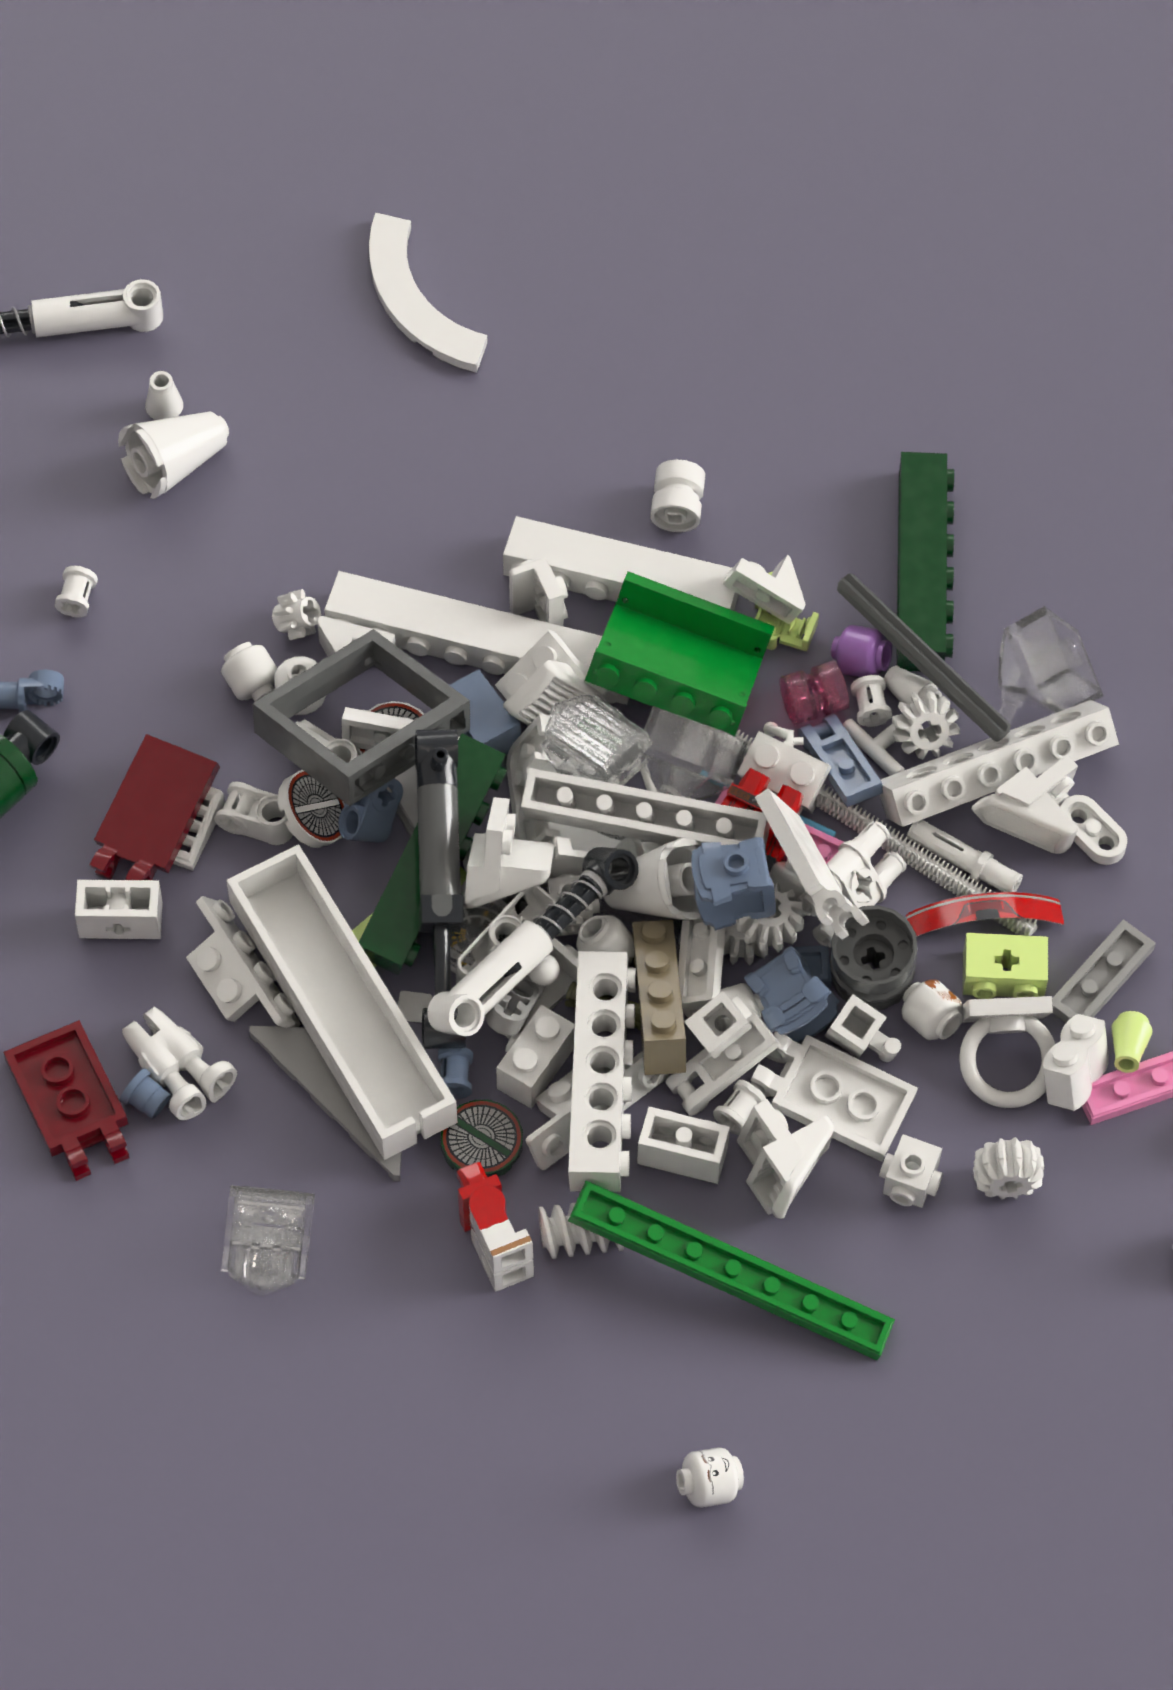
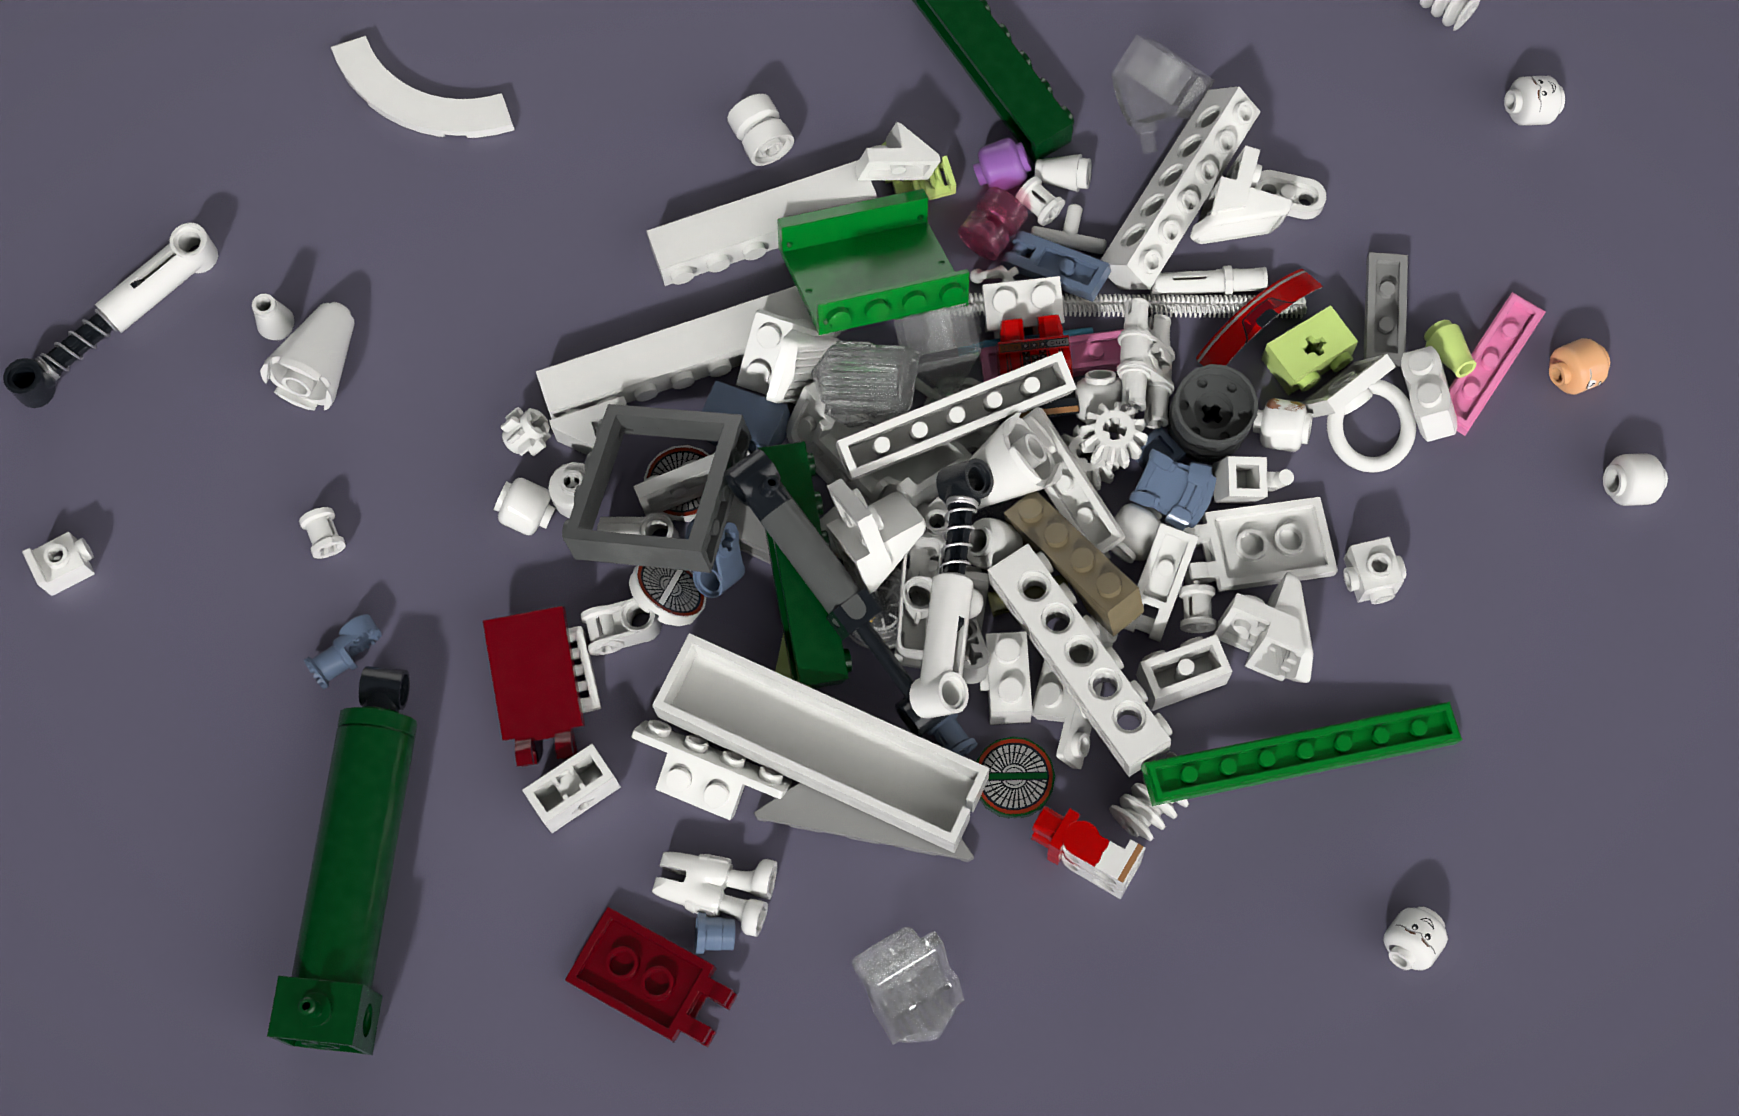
camera: 30 degrees left, 10 degrees up
(412, 1004) = (871, 699): white sticker -> none
(536, 587) = (716, 280): white bracket -> none
(705, 1019) = (1153, 568): white brick -> none
(732, 882) = (1078, 429): sand blue piece -> none
(809, 864) = (1127, 373): white tile -> none
(923, 657) = (1062, 138): dark grey axle -> none
(938, 715) = (1101, 193): white gear -> none
(1008, 1168) = (1445, 516): white gear -> none

